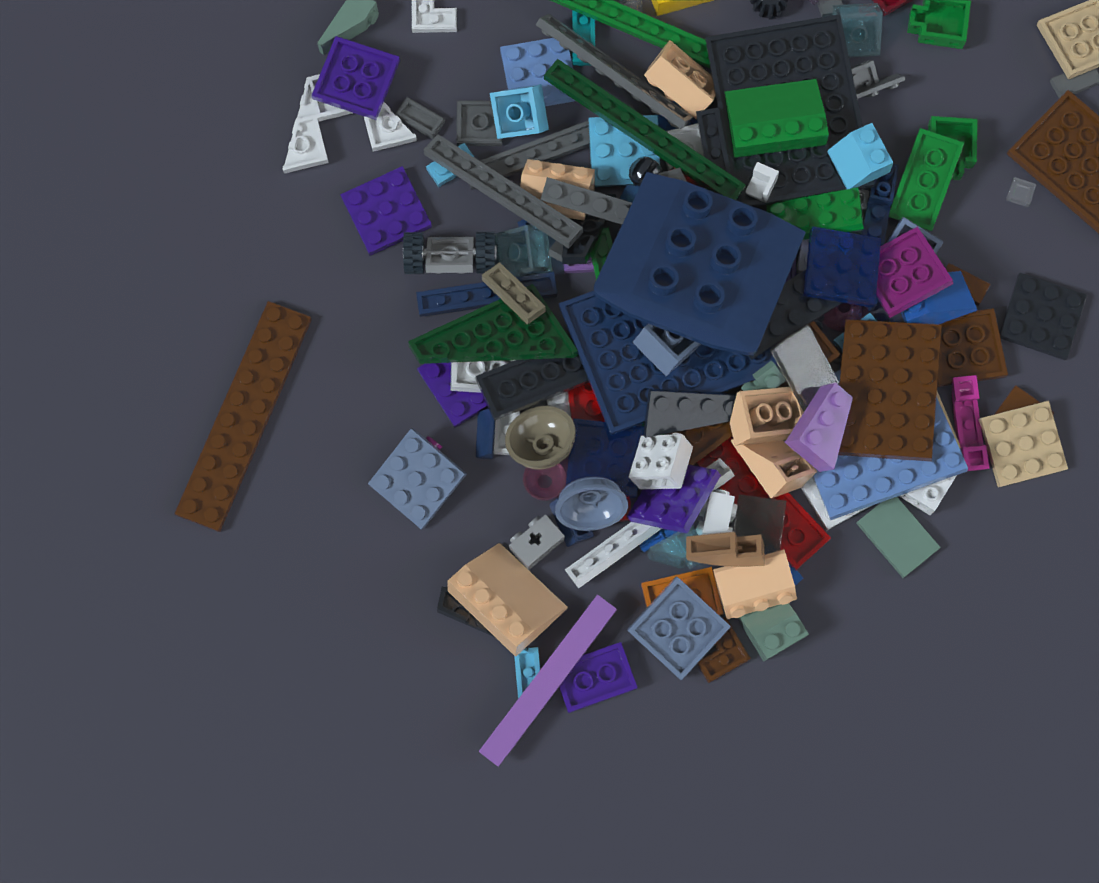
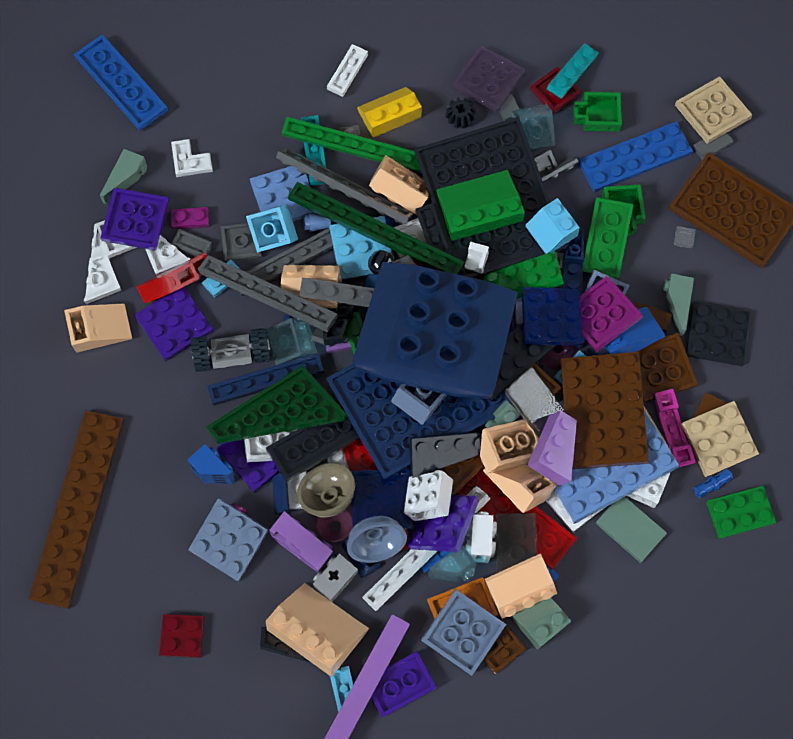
camera: 10 degrees left, 5 degrees down
(295, 201) = (97, 326): none -> light nougat slope
(347, 583) = (181, 636): none -> dark red plate
(390, 158) = (171, 279): none -> red slope
(405, 390) = (210, 468): none -> blue slope
(422, 85) = (190, 218): none -> magenta plate
(502, 494) = (301, 542): none -> medium lavender wedge
(513, 293) = (287, 375): dark tan plate -> none
(570, 112) = (314, 222): none -> medium blue cone
(726, 549) = (493, 561): medium nougat slope -> none
(976, 83) = (635, 156): none -> blue plate
(1001, 267) = (678, 298): none -> sand green slope
(1006, 496) = (713, 483): none -> blue pin
(1034, 535) = (741, 512): none -> green plate

